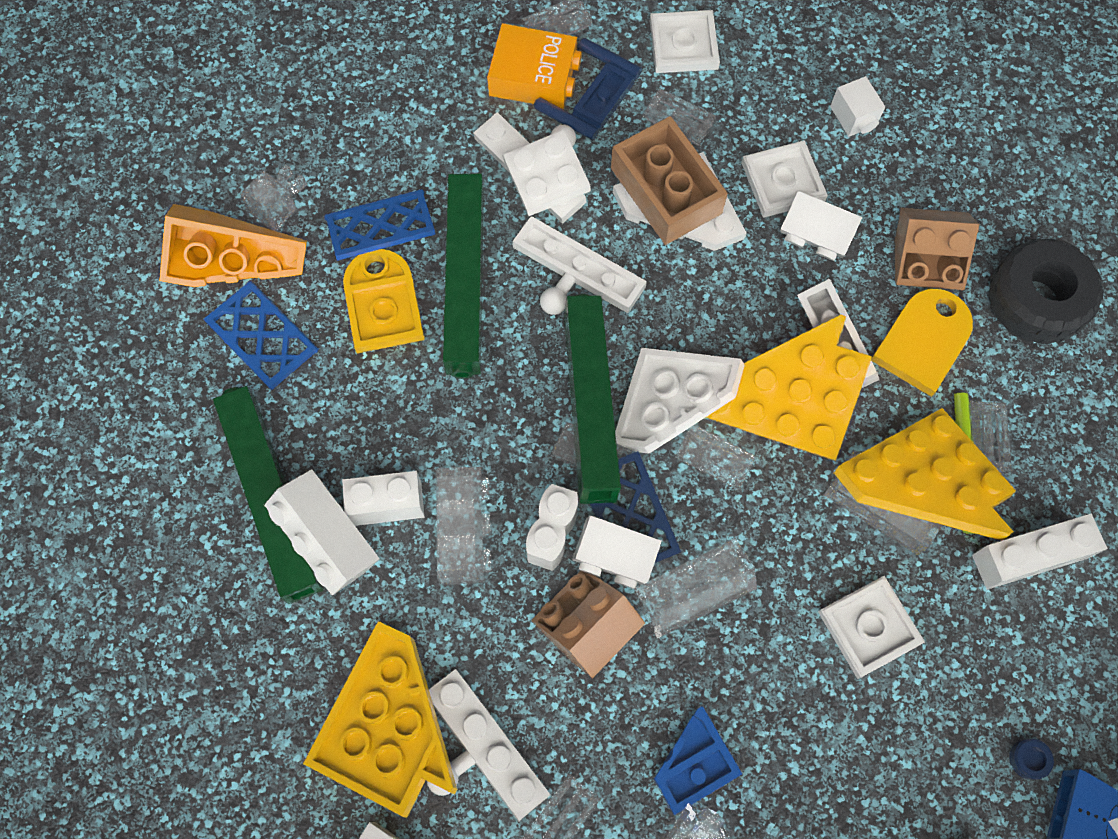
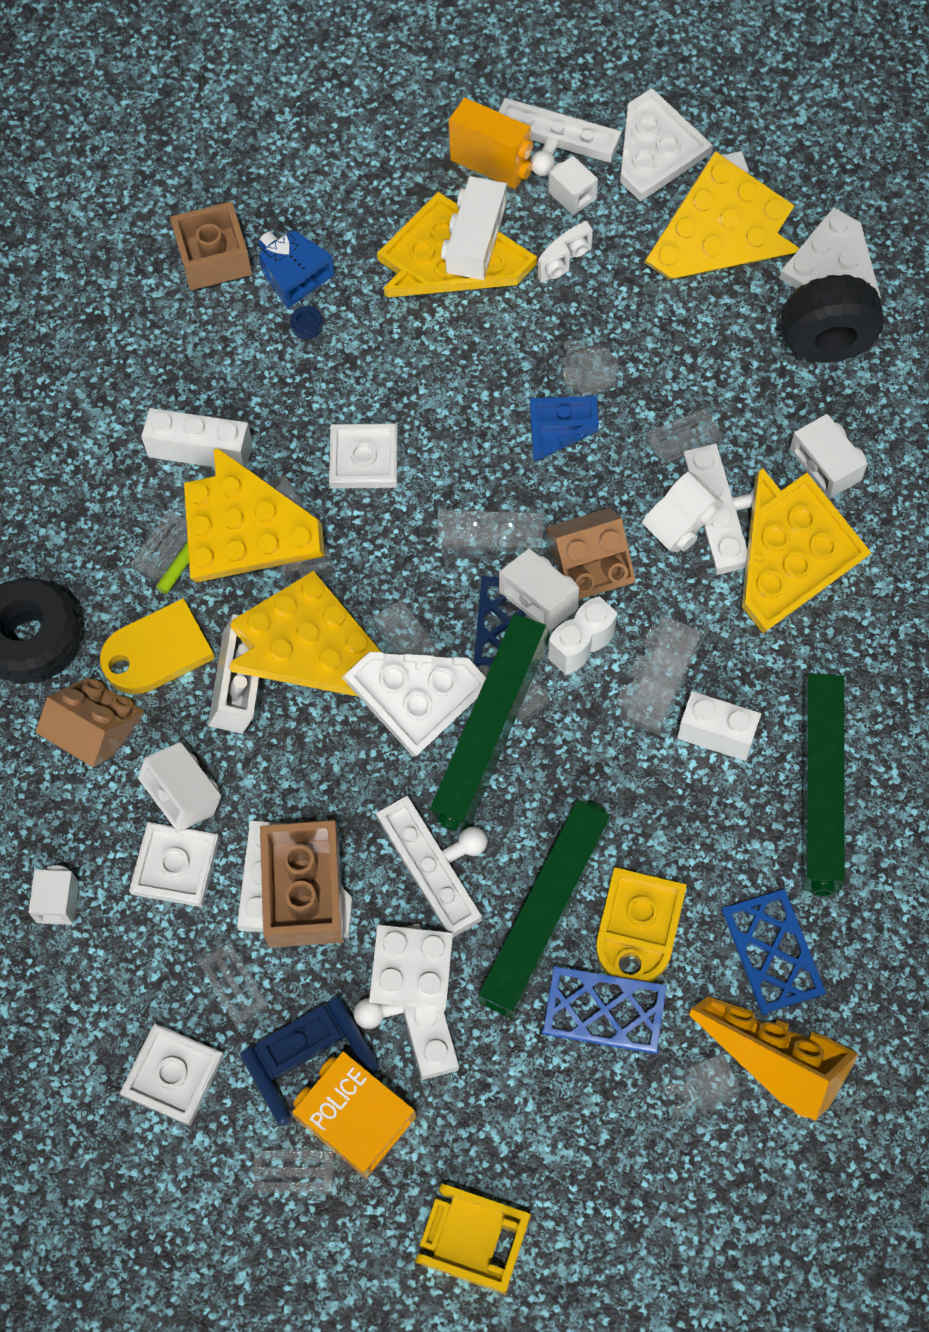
camera: 150 degrees left, 5 degrees down
(321, 532) = (788, 708): white brick -> none
(412, 36) = (467, 1235): none -> yellow container
(513, 707) = (683, 512): none -> white brick

